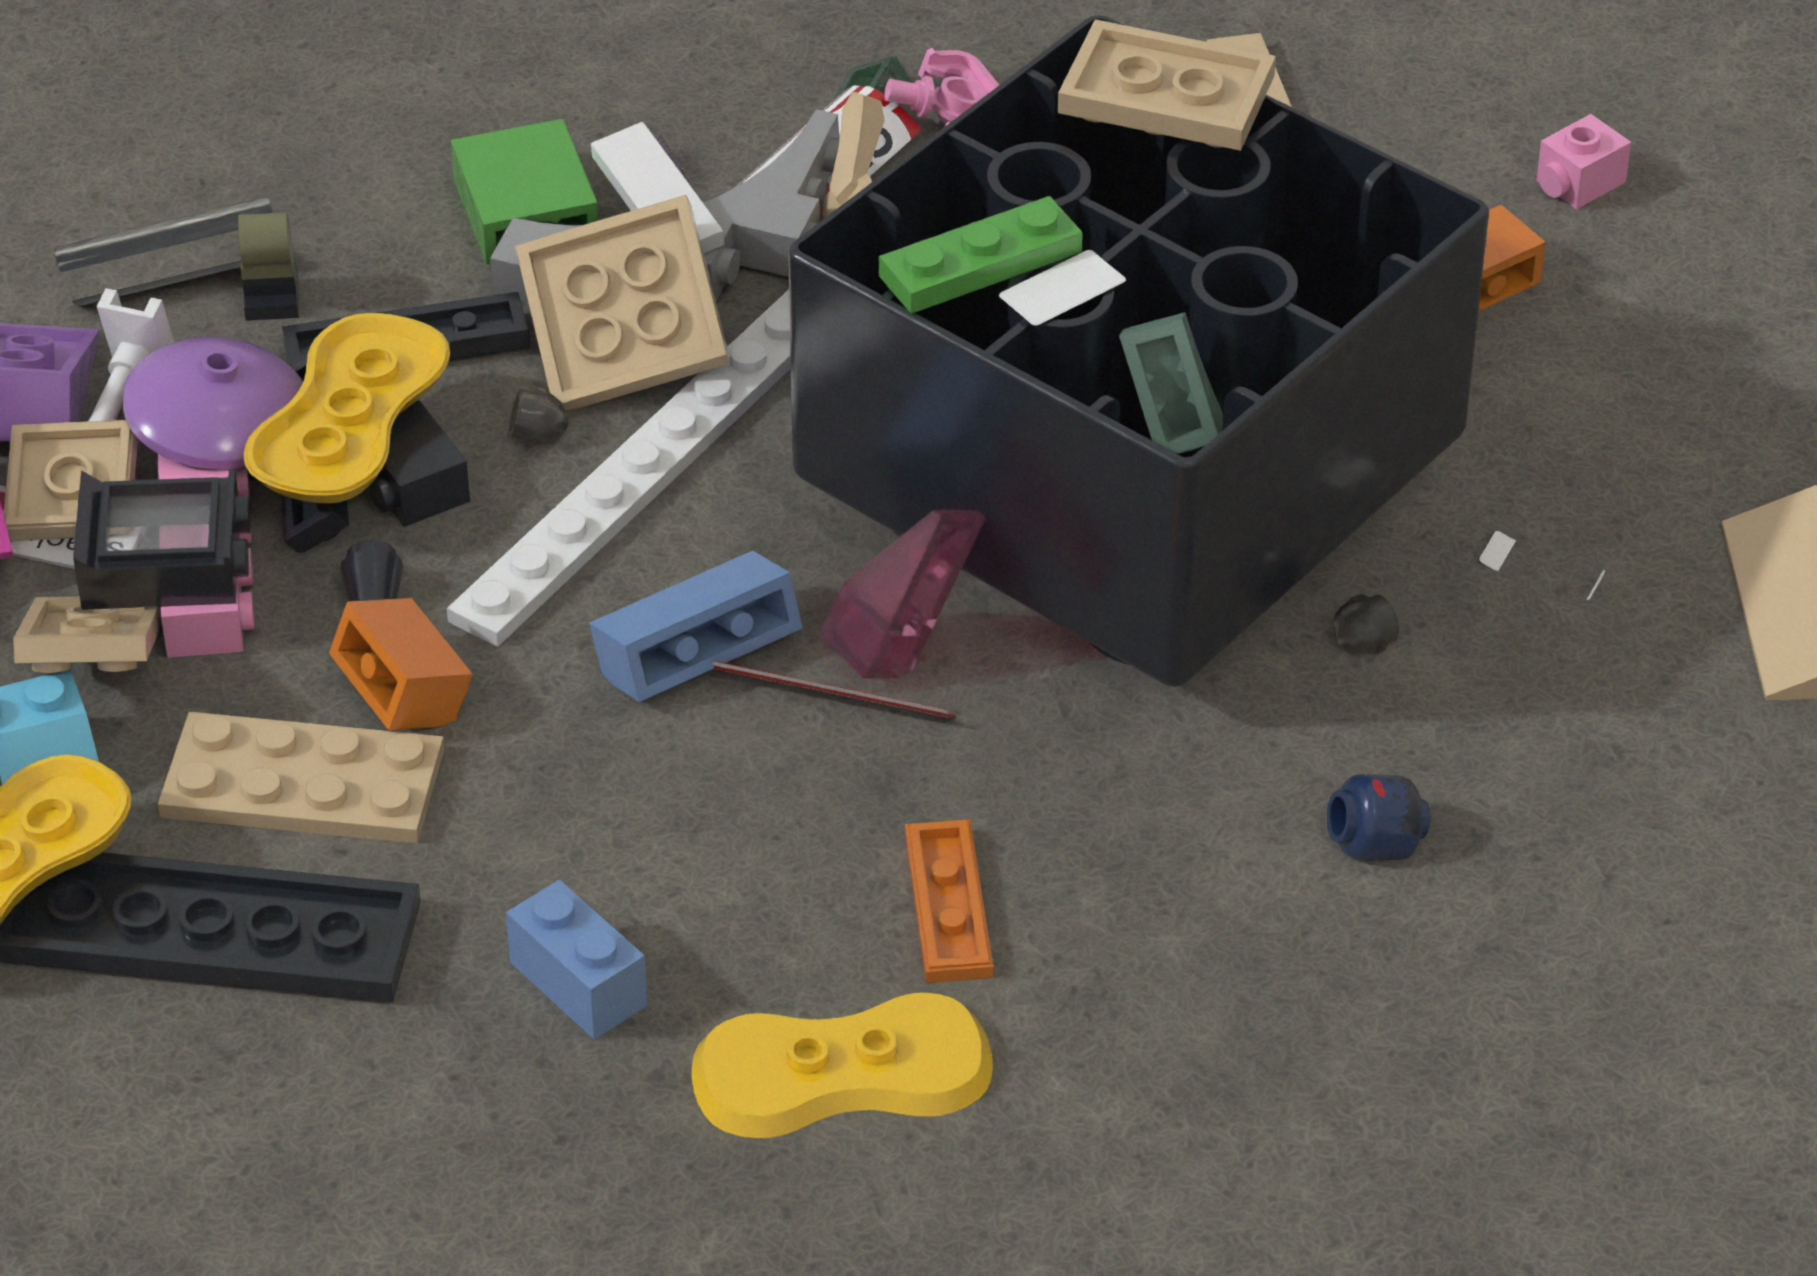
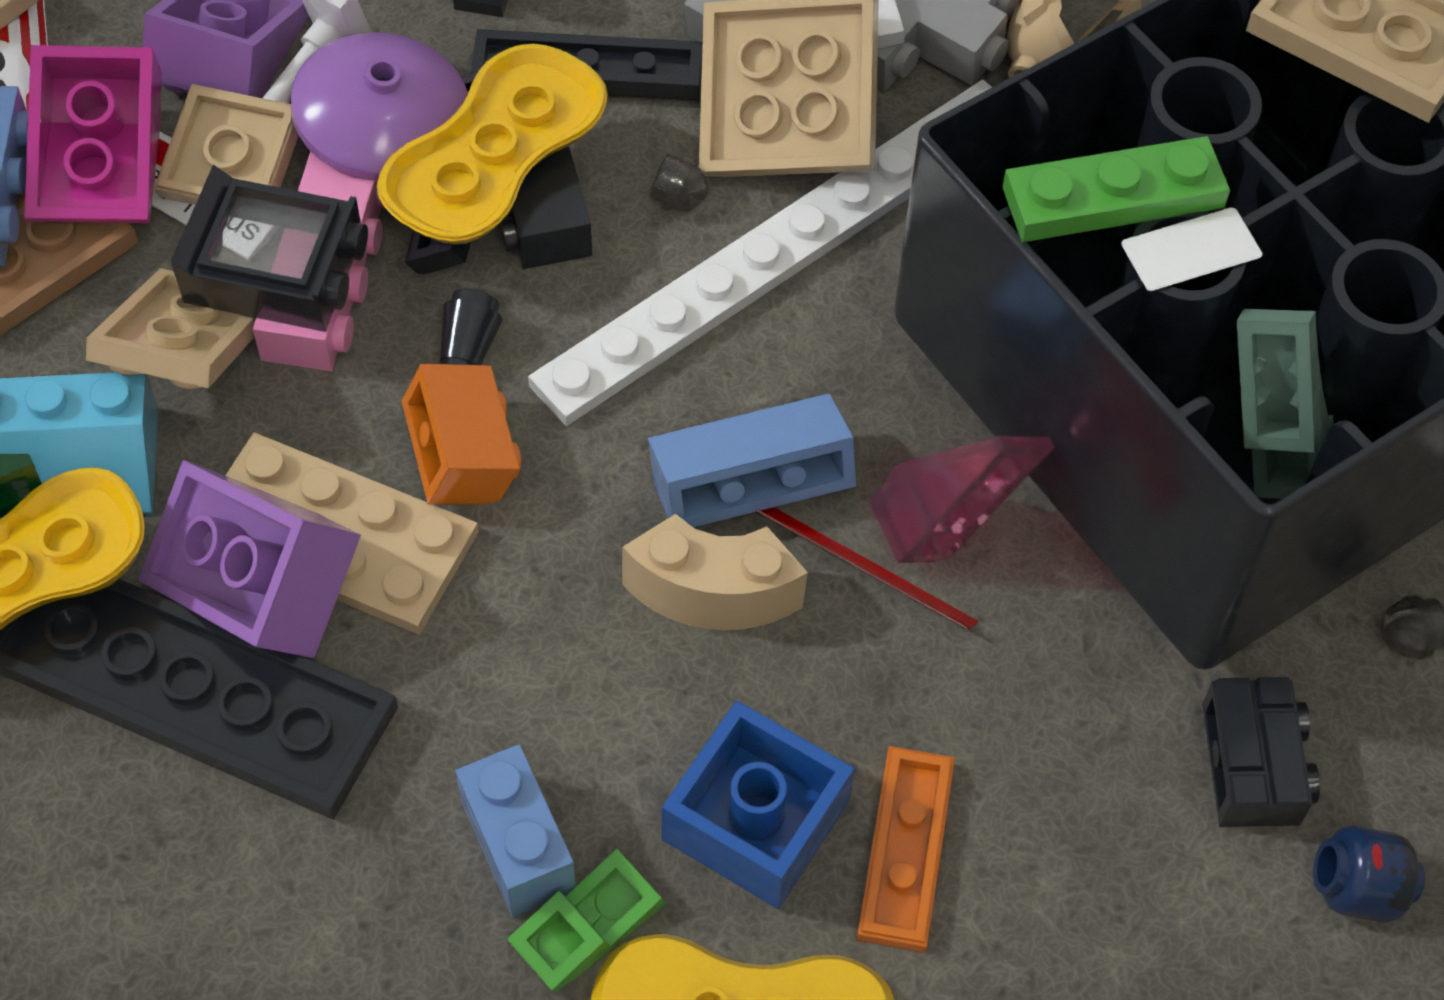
camera: 15 degrees right, 15 degrees up
(234, 798) = (249, 560): none -> medium lavender slope
(663, 1029) = (587, 922): none -> bright green slope
(691, 724) = (713, 578): none -> tan brick
(798, 885) = (757, 804): none -> blue brick
(1250, 749) = (1259, 752): none -> black brick

